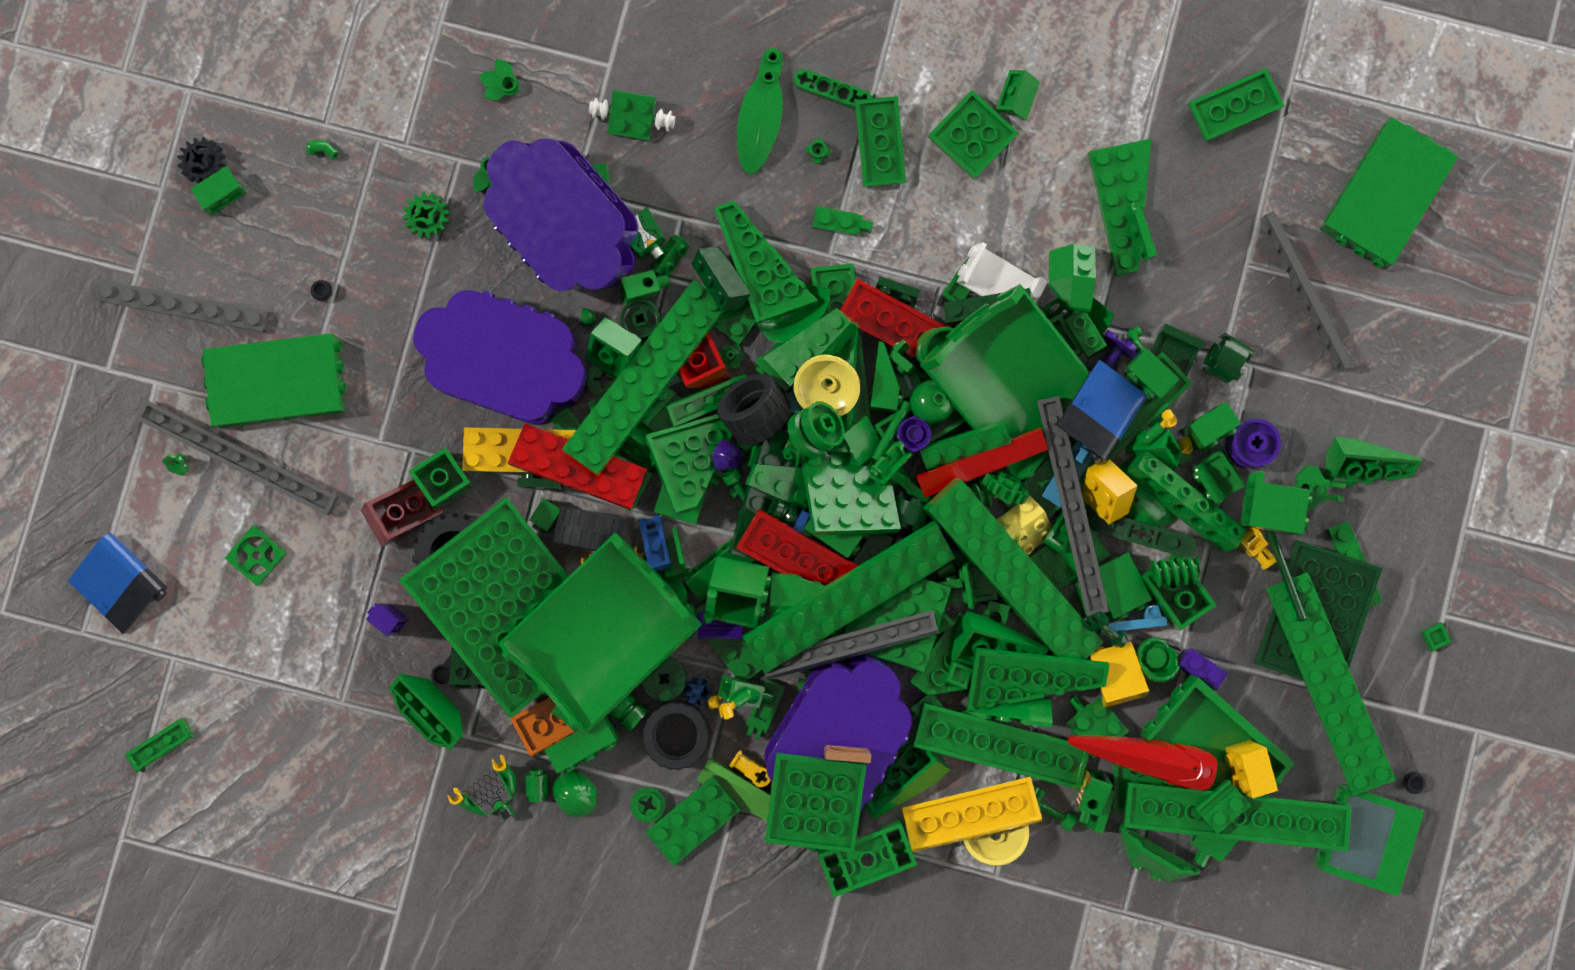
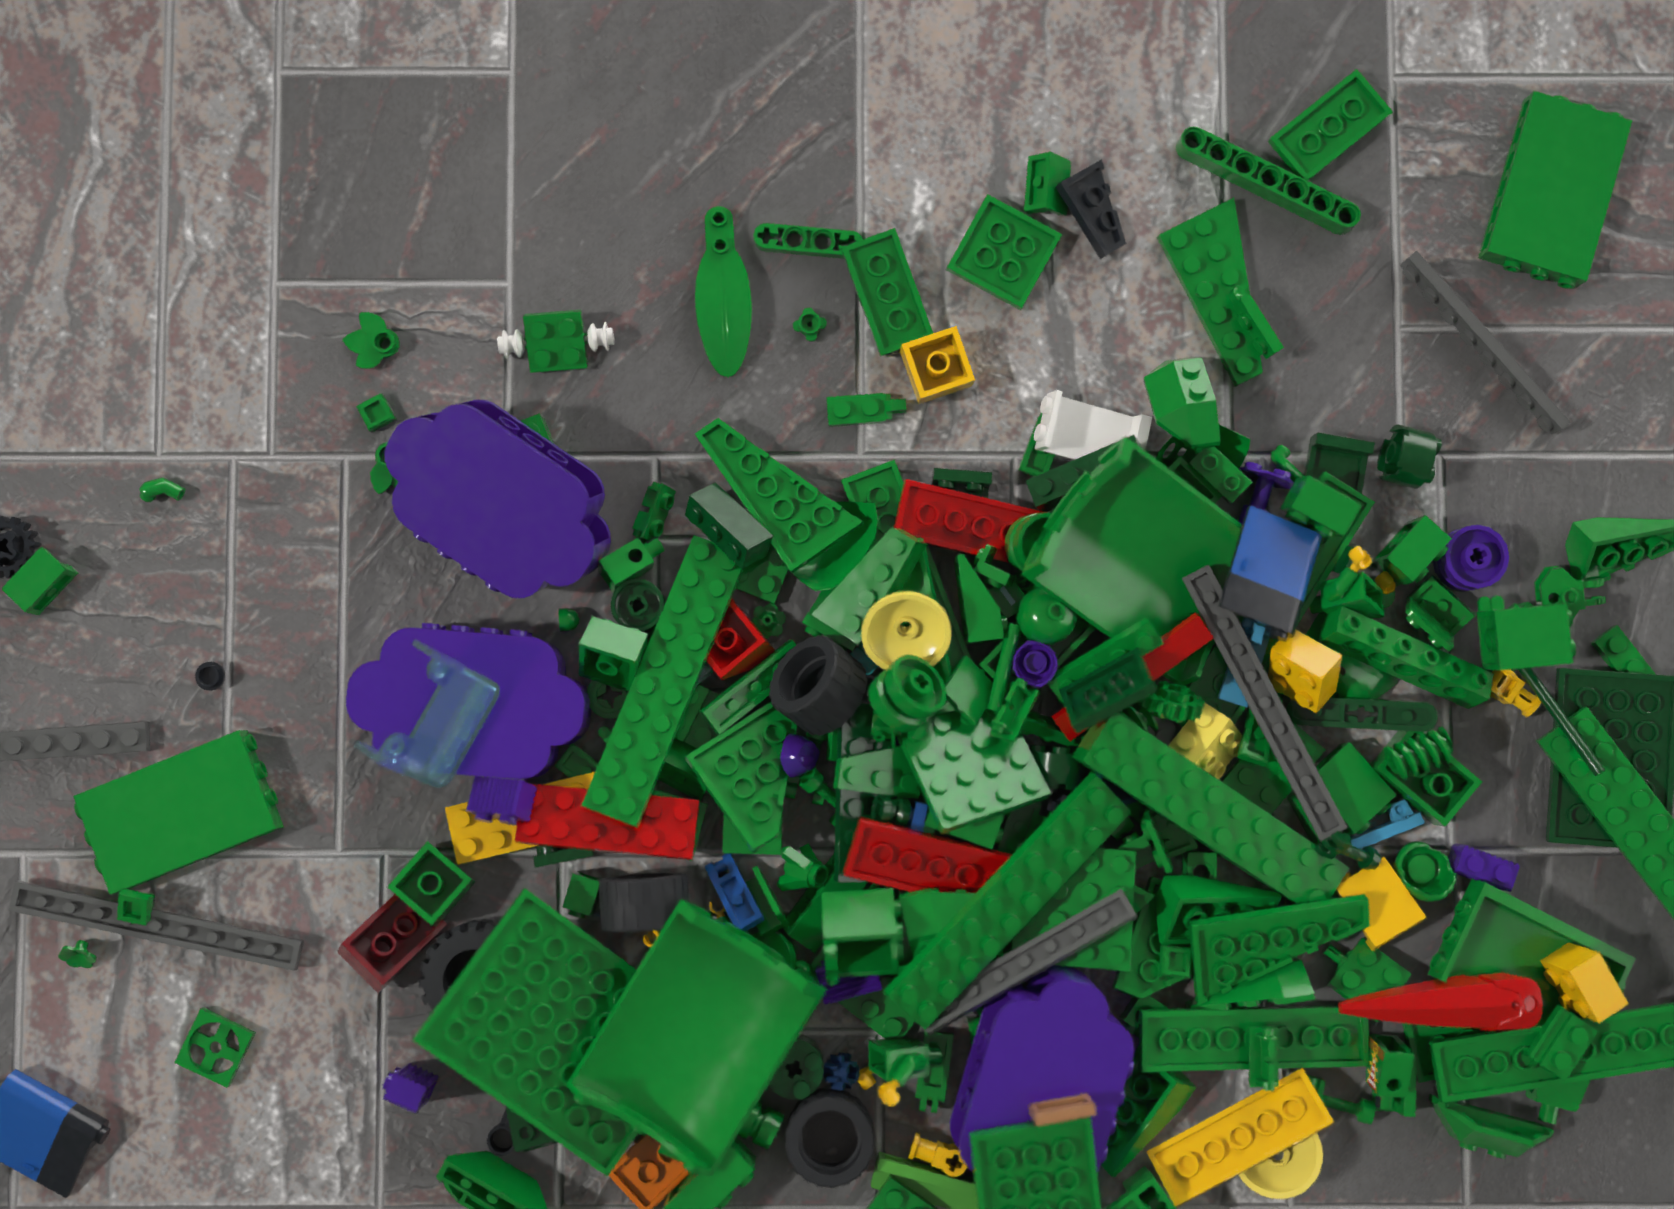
camera: 20 degrees left, 0 degrees up
(226, 439) = (135, 906): none -> green tile
(434, 212) = (331, 535): green gear -> none
(481, 366) = (444, 727): none -> clear light blue windscreen
(489, 133) = (376, 412): none -> green tile
(506, 430) = (501, 799): none -> dark purple brick
(648, 237) = (620, 494): green torso -> none
(707, 539) = (801, 869): none -> green rock
(902, 203) = (937, 365): none -> yellow brick
(960, 465) = (1107, 690): none -> dark green plate
(1004, 760) = (1263, 1057): none -> green hinge
(1045, 117) = (1091, 207): none -> black wing
(1190, 134) = (1281, 179): none -> green beam

